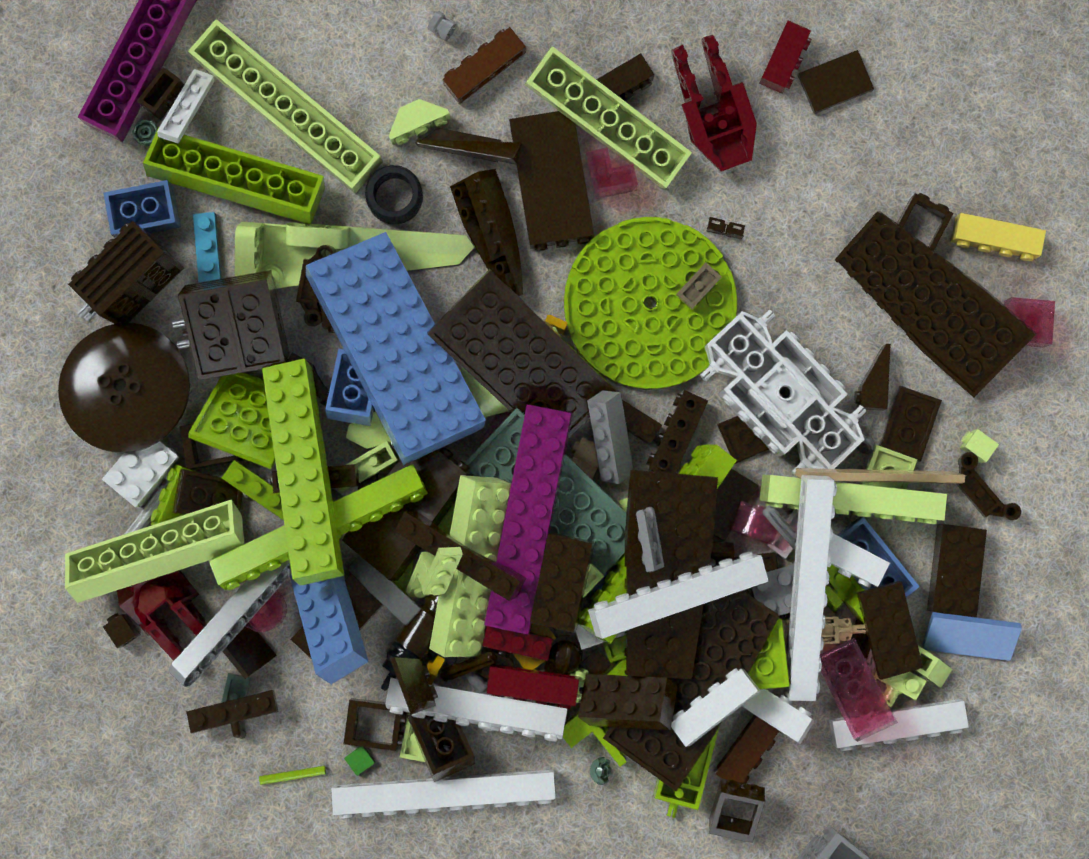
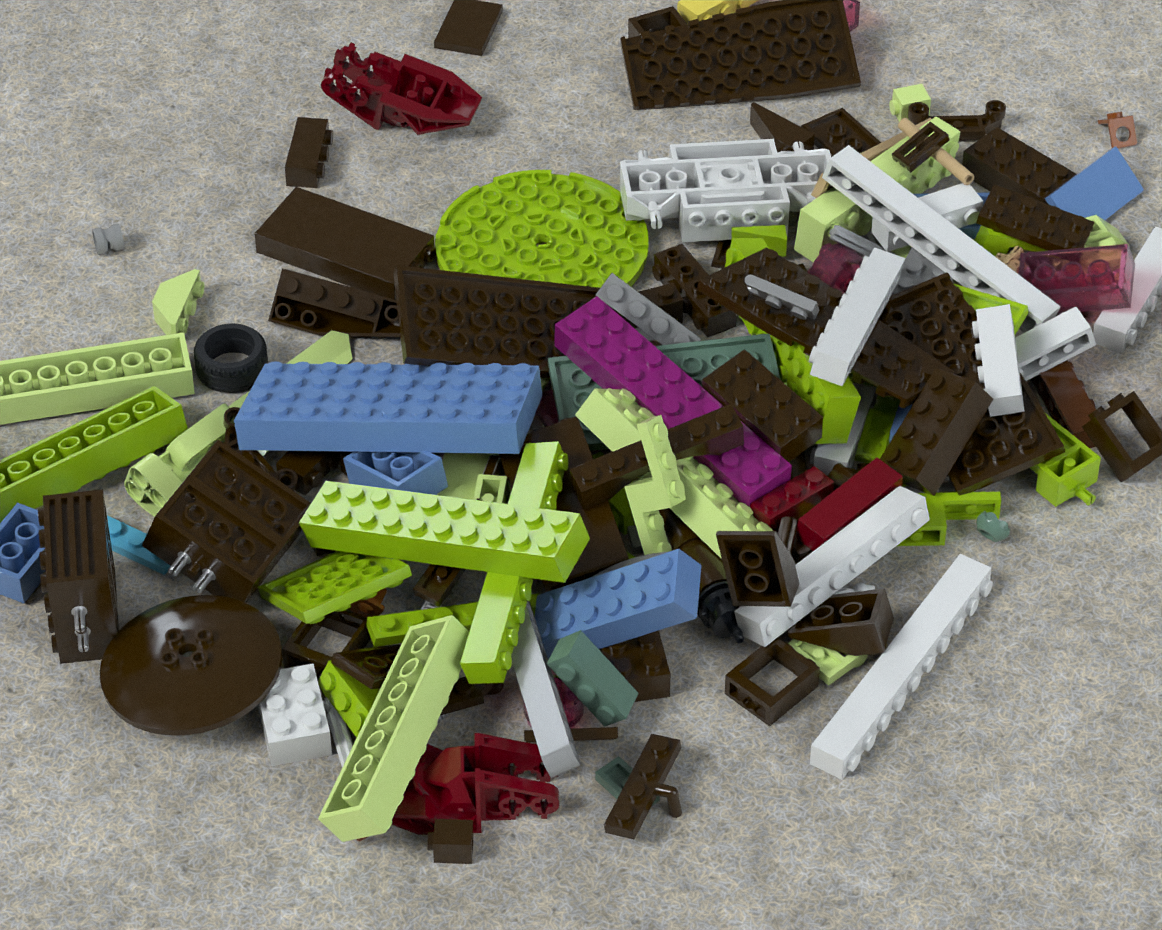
camera: 55 degrees left, 40 degrees down
(271, 635) = (592, 678): none -> sand green brick
(291, 775) = (764, 790): lime bar -> none
(359, 760) = (801, 722): bright green tile -> none
(471, 146) = (250, 277): dark brown wedge -> none
(484, 65) = (180, 229): reddish brown brick -> none
(607, 118) = (334, 158): yellowish green brick -> none
(608, 180) = (390, 200): clear pink brick -> none
(698, 286) = (562, 193): dark tan plate -> none
(730, 231) = (541, 155): dark brown piece -> none
(758, 451) = (773, 235): none -> lime slope
(786, 57) = (408, 36): dark red brick -> none
(902, 523) = (941, 155): none -> tan piece
(913, 517) = (923, 149): none -> dark brown tile
(1067, 599) = (1115, 121): none -> bracket

